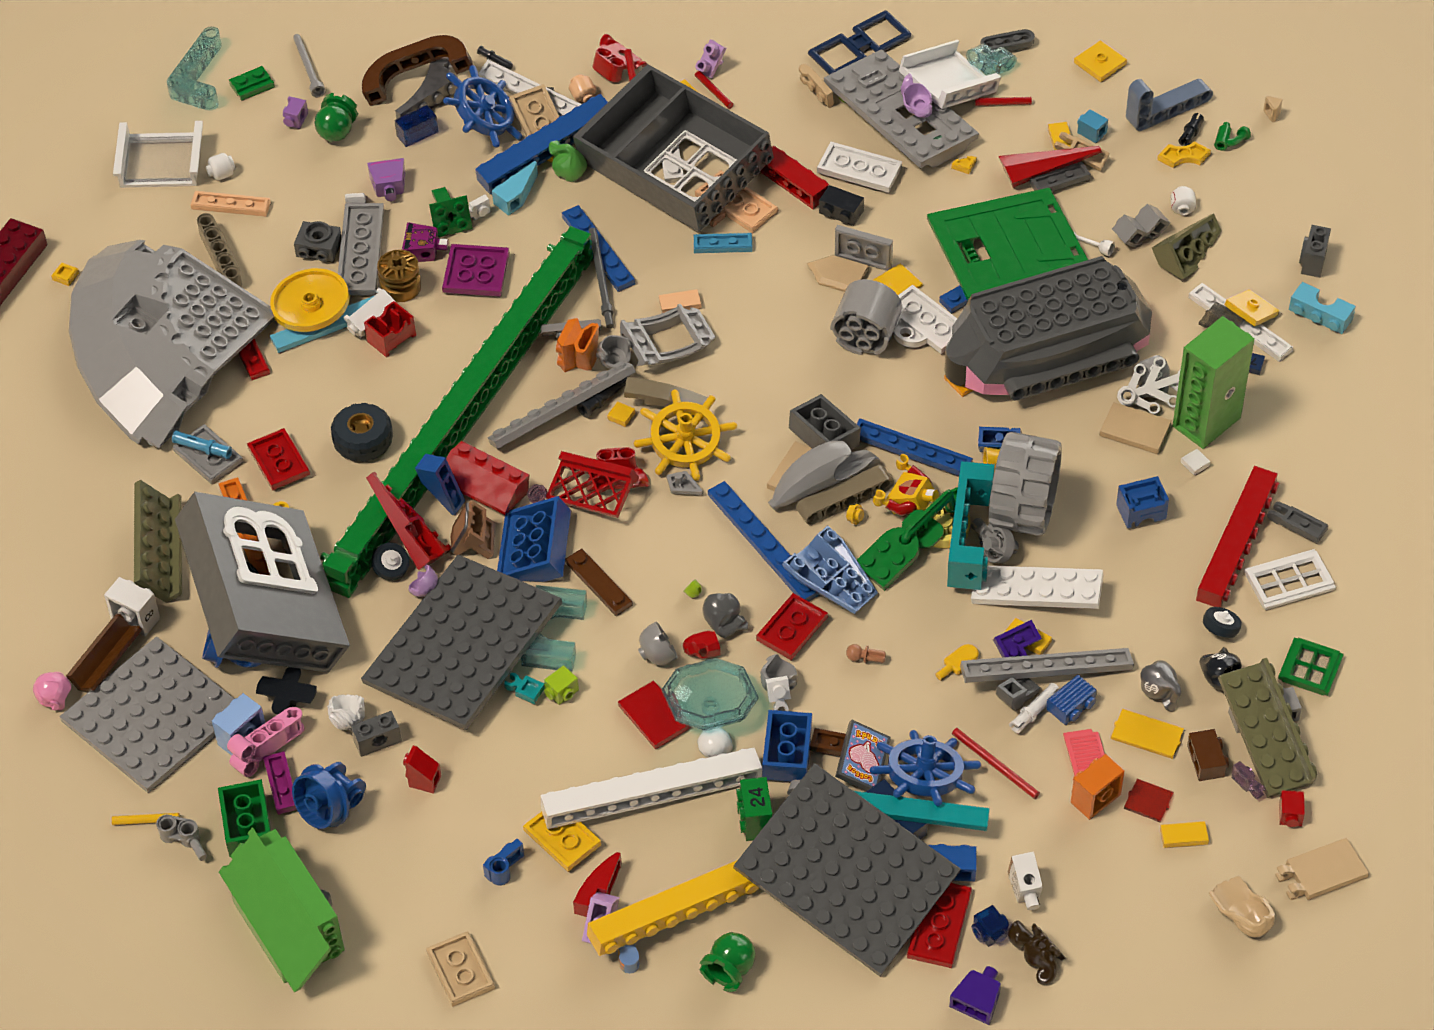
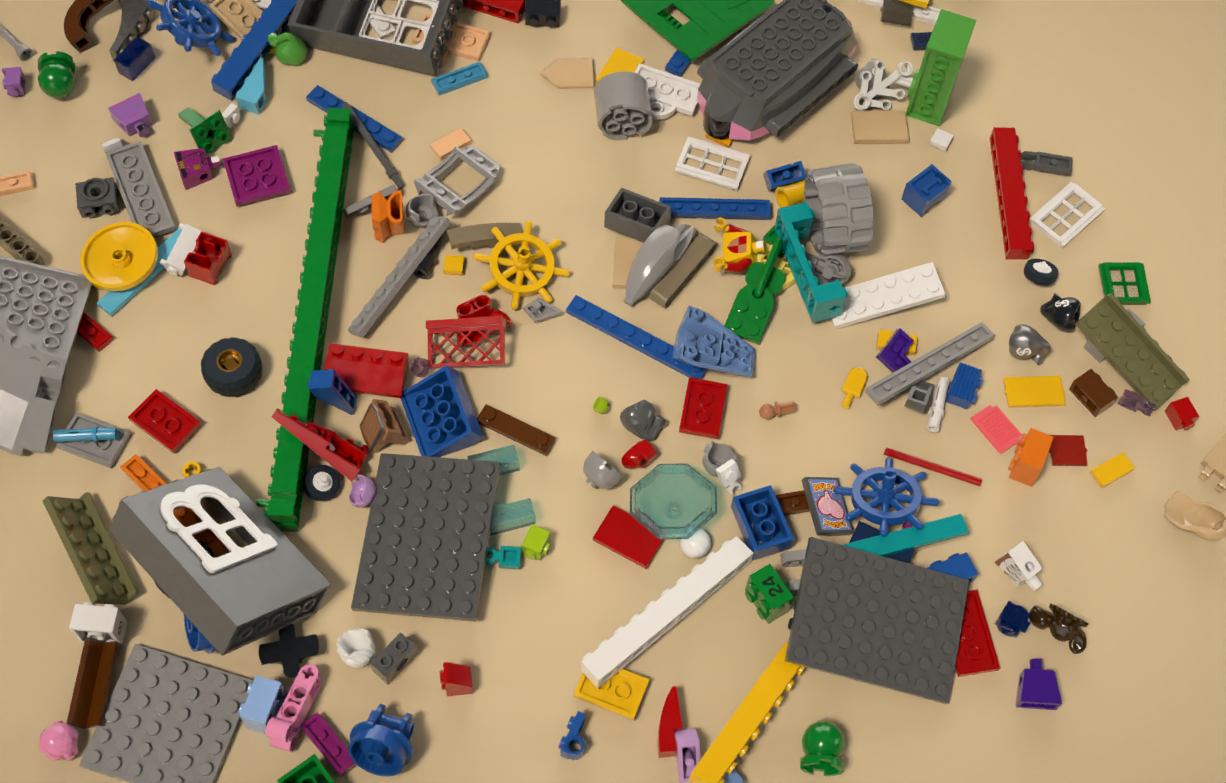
camera: 30 degrees left, 10 degrees up
(399, 275) = (191, 204): pearl gold wheel -> none
(855, 514) = (701, 284): yellow plate -> none
(863, 247) = (584, 44): light grey tile -> none
(930, 421) = (708, 176): none -> white piece

